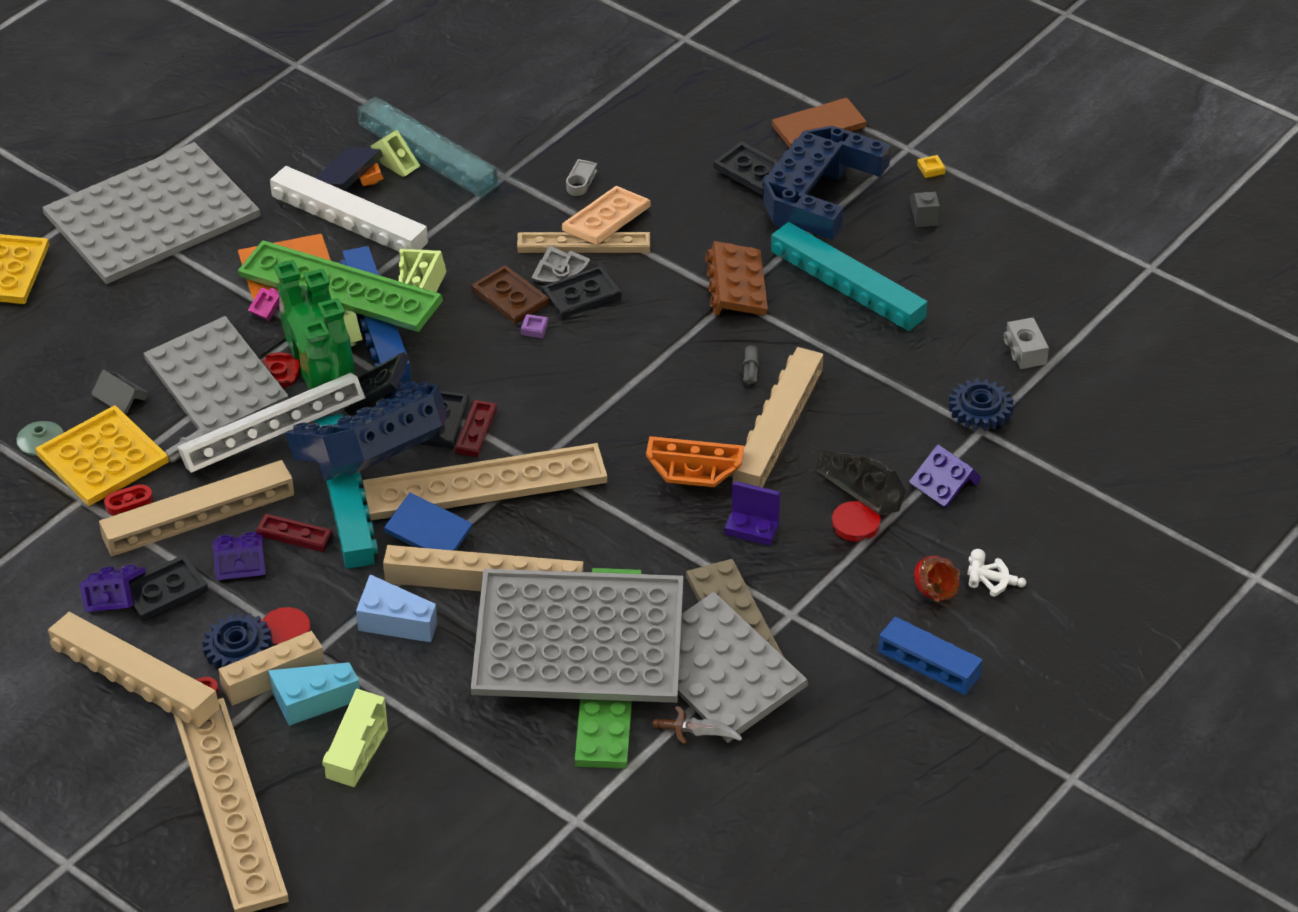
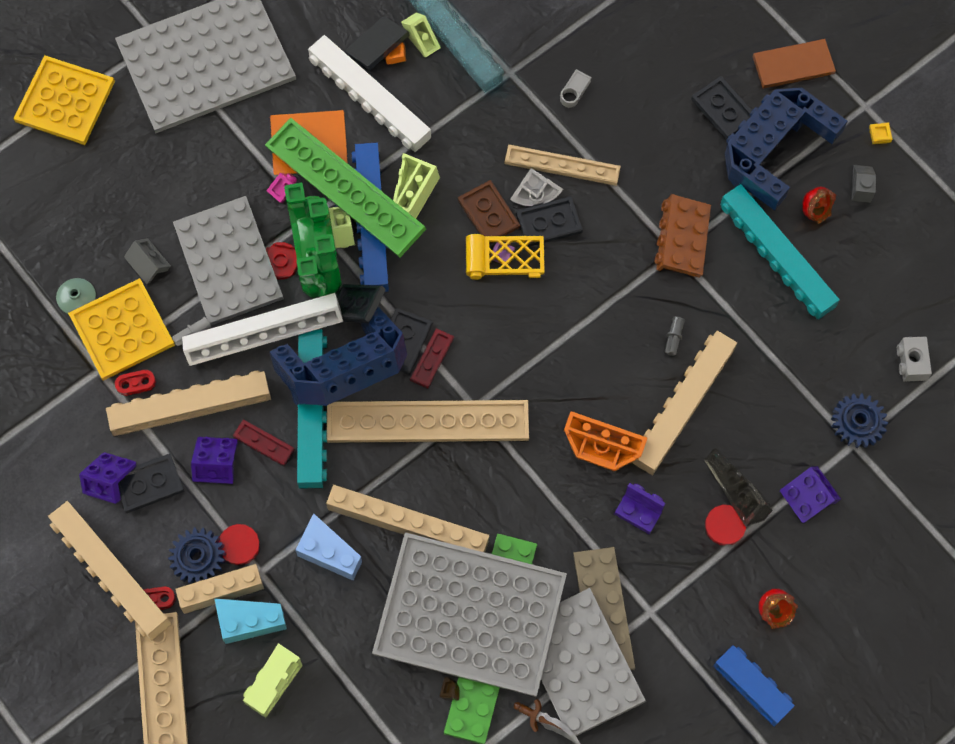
camera: 10 degrees right, 25 degrees up
(427, 525) = (371, 464): blue tile -> none
(510, 329) = (478, 256): none -> yellow piece
(571, 719) = (449, 690): none -> dark brown tile
(606, 215) = (587, 139): light nougat tile -> none
(880, 228) = (818, 204): none -> clear orange hair
(981, 572) = (814, 605): white piece -> none

